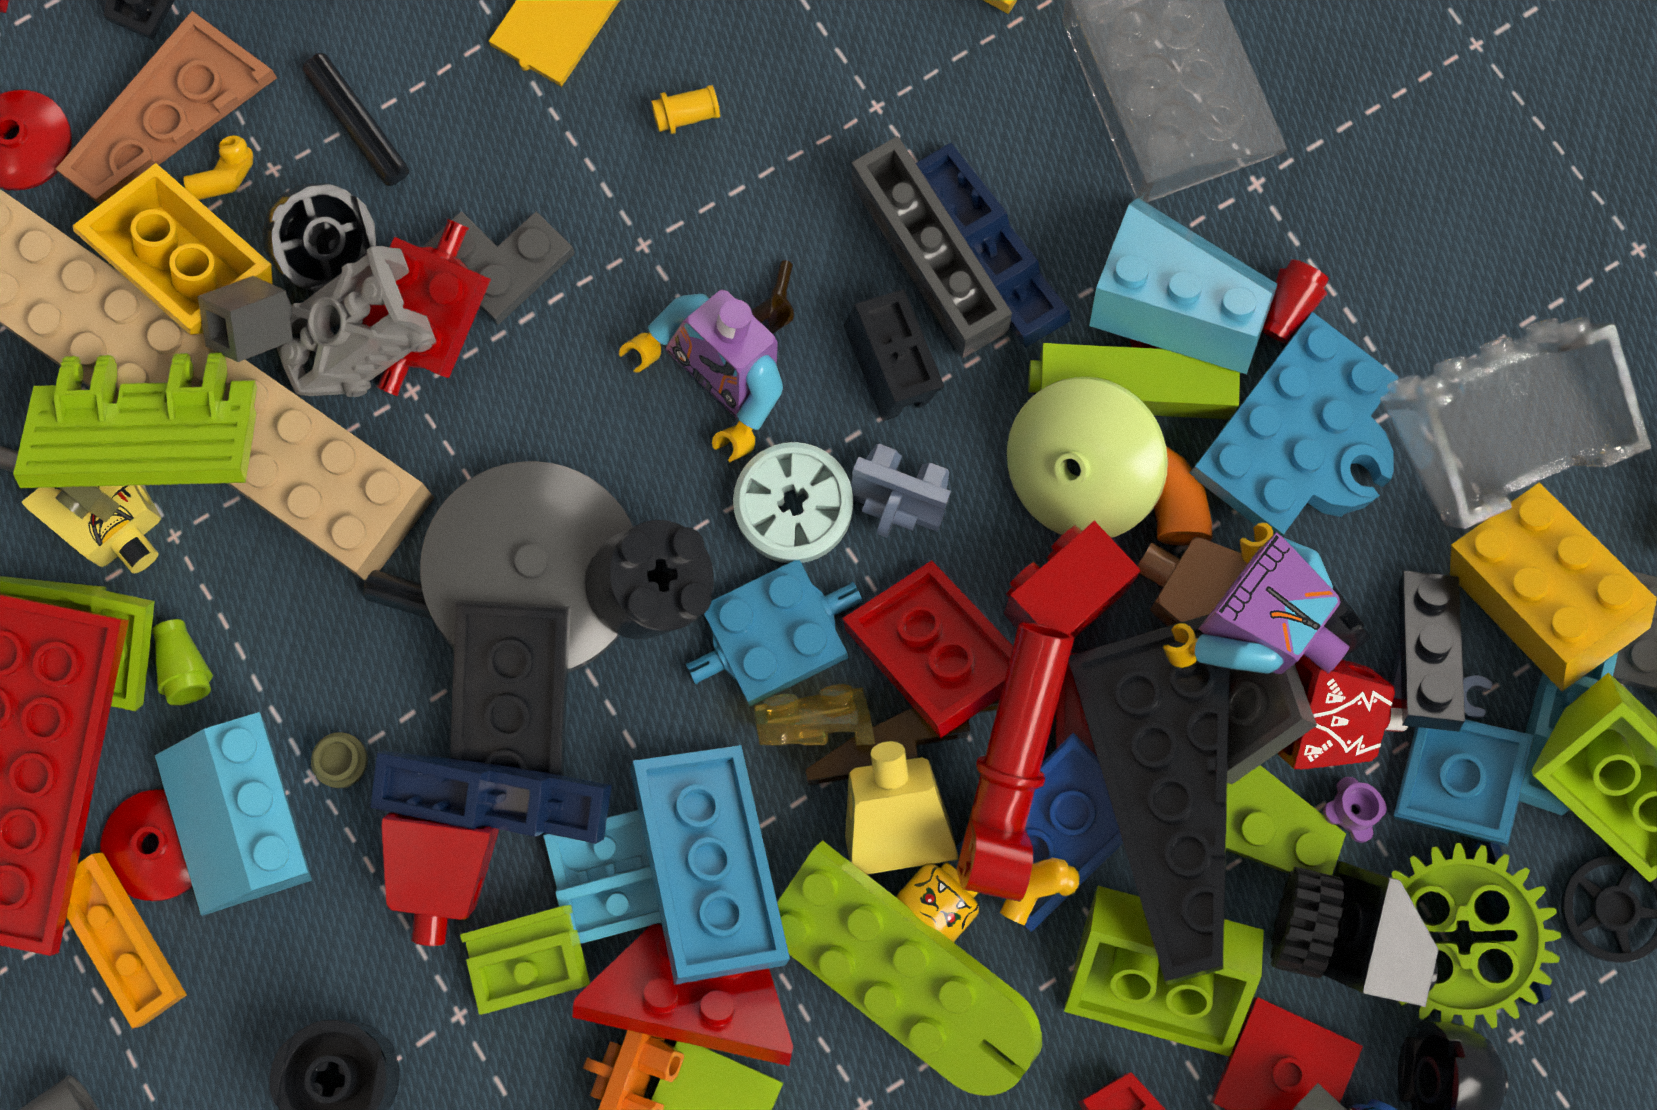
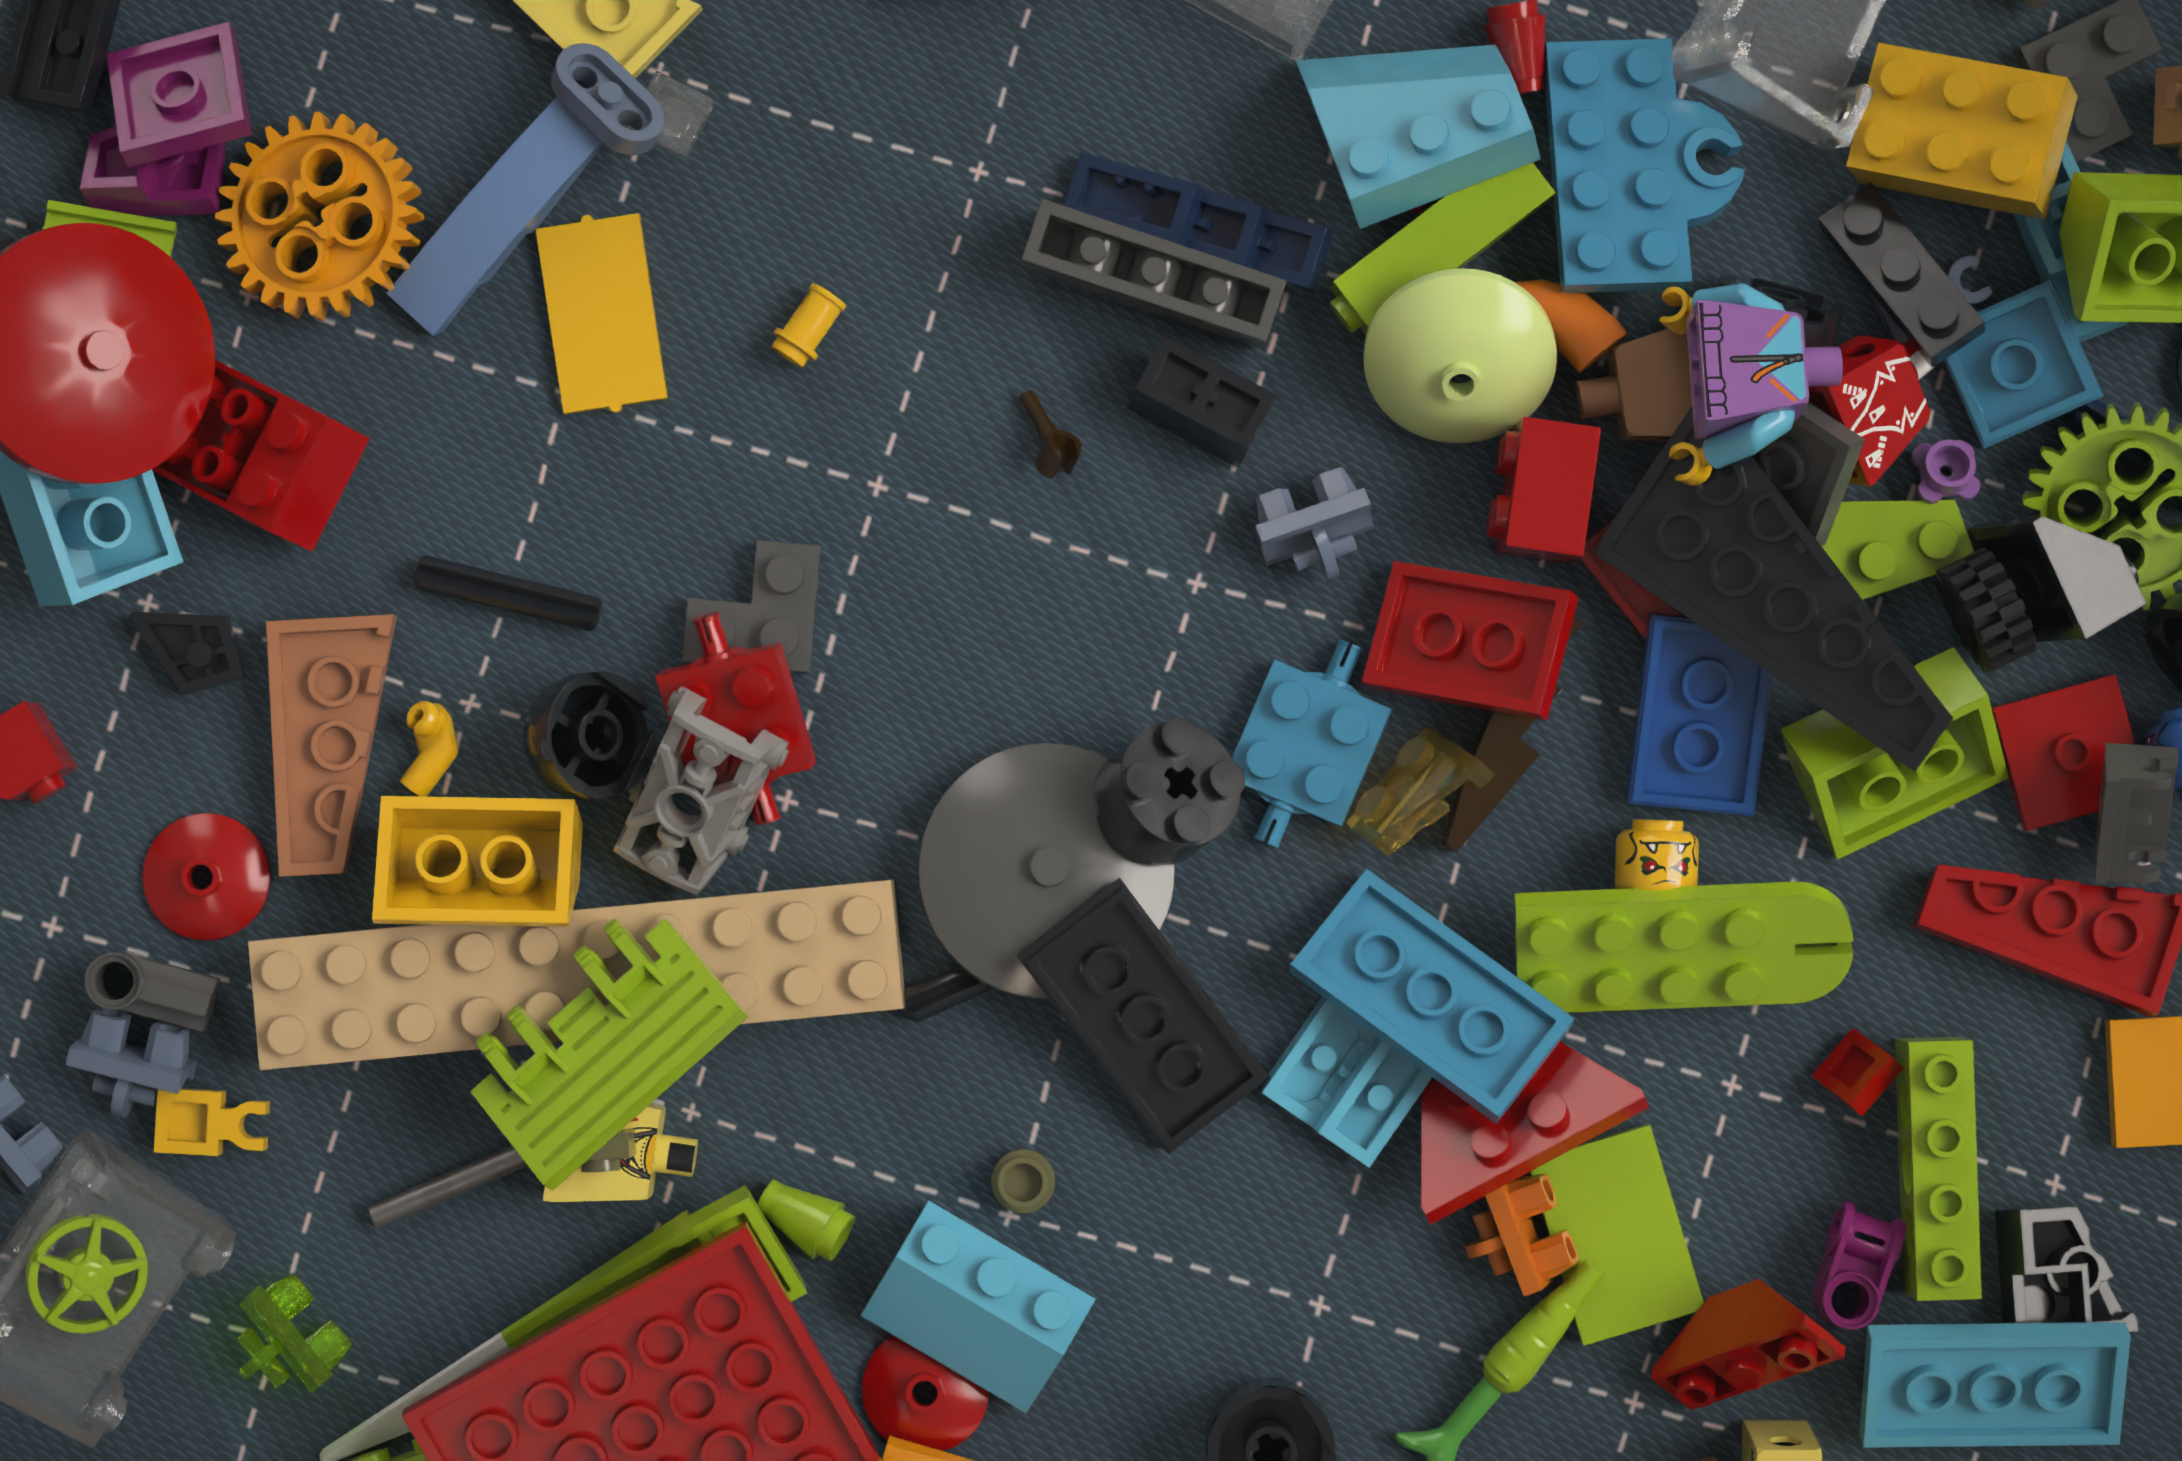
camera: 45 degrees left, 10 degrees up
(245, 318) = (605, 869): dark grey brick -> none
(434, 871) = (1196, 1199): red torso -> none
(490, 796) = (1191, 1099): dark blue slope -> none
(525, 959) = (1342, 1211): lime plate -> none
(725, 353) = (1050, 531): torso -> none
(761, 493) = (1262, 598): light aqua wheel -> none
(896, 814) = (1557, 817): light yellow torso -> none
(996, 846) = (1673, 776): red piece -> none
(1046, 879) = (1727, 770): yellow arm -> none

